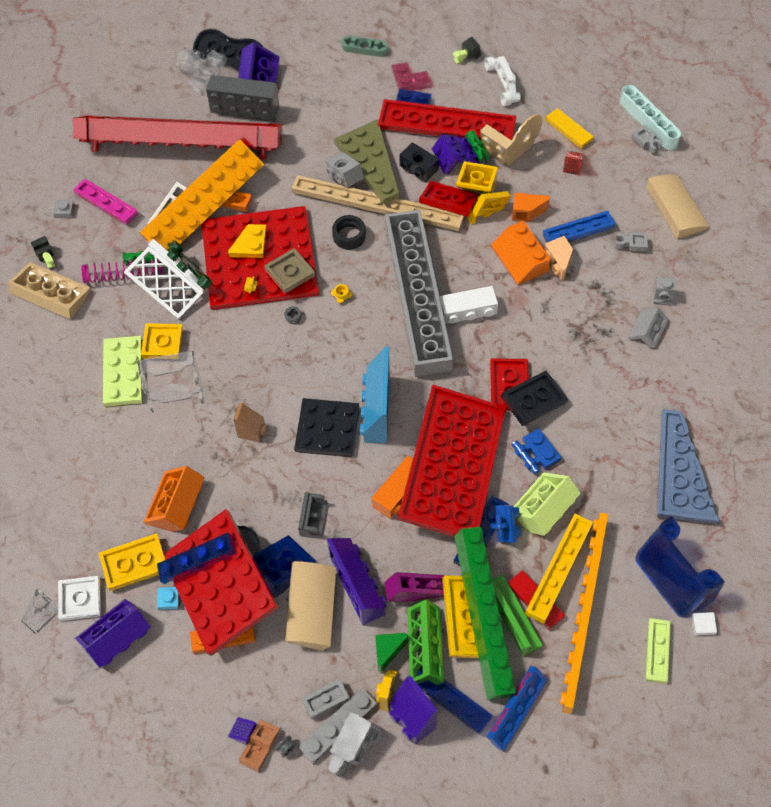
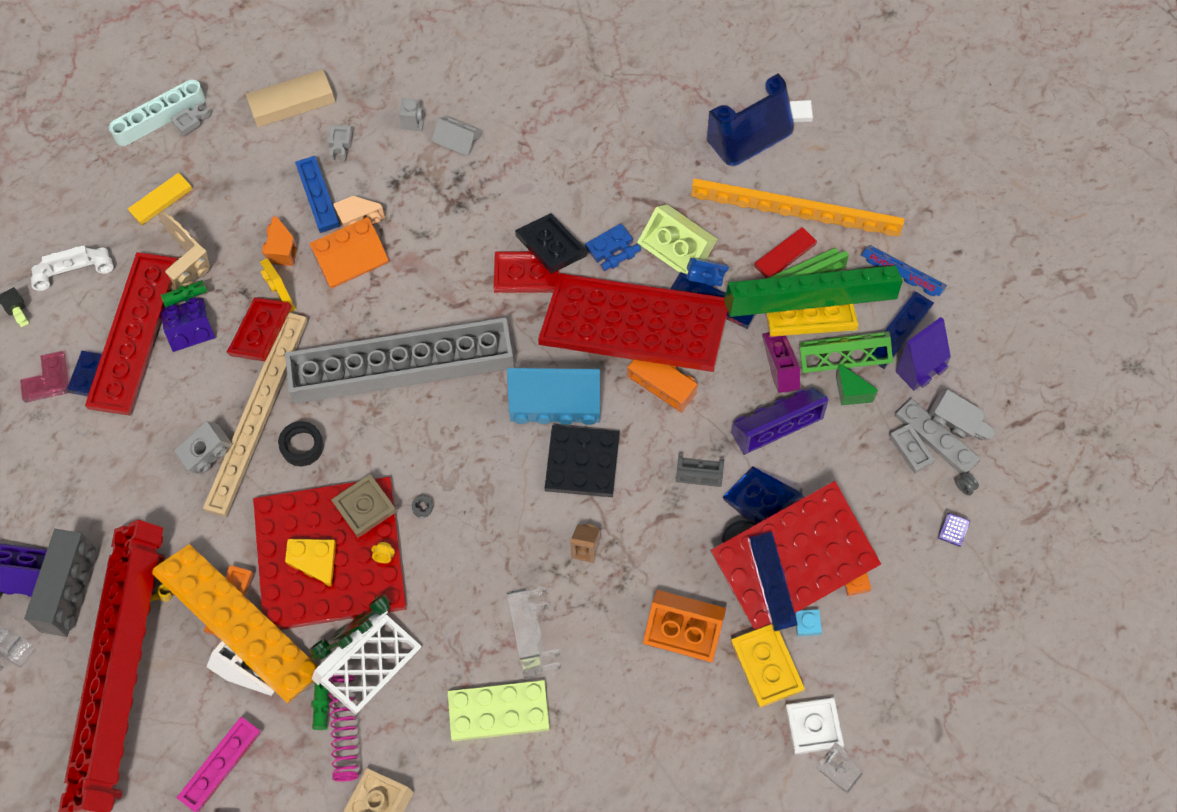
camera: 90 degrees left, 5 degrees up
(113, 633) = (857, 679): dark purple slope -> none
(161, 340) = (457, 662): yellow plate -> none
(259, 745) = (979, 516): nougat slope -> none
(311, 605) = (811, 462): tan slope -> none
(341, 288) = (392, 444): yellow plate -> none
(368, 148) = (165, 426): olive wing -> none
(385, 690) = (900, 384): yellow wing -> none
(418, 162) = (197, 352): black brick -> none
(469, 305) = (419, 305): white brick -> none
(477, 177) = (238, 292): yellow slope -> none
(558, 568) = (753, 227): yellow plate -> none
(573, 162) = (215, 193): clear red slope -> none
(658, 651) = (831, 151): yellowish green tile -> none
(681, 479) = (638, 117): sand blue wing -> none

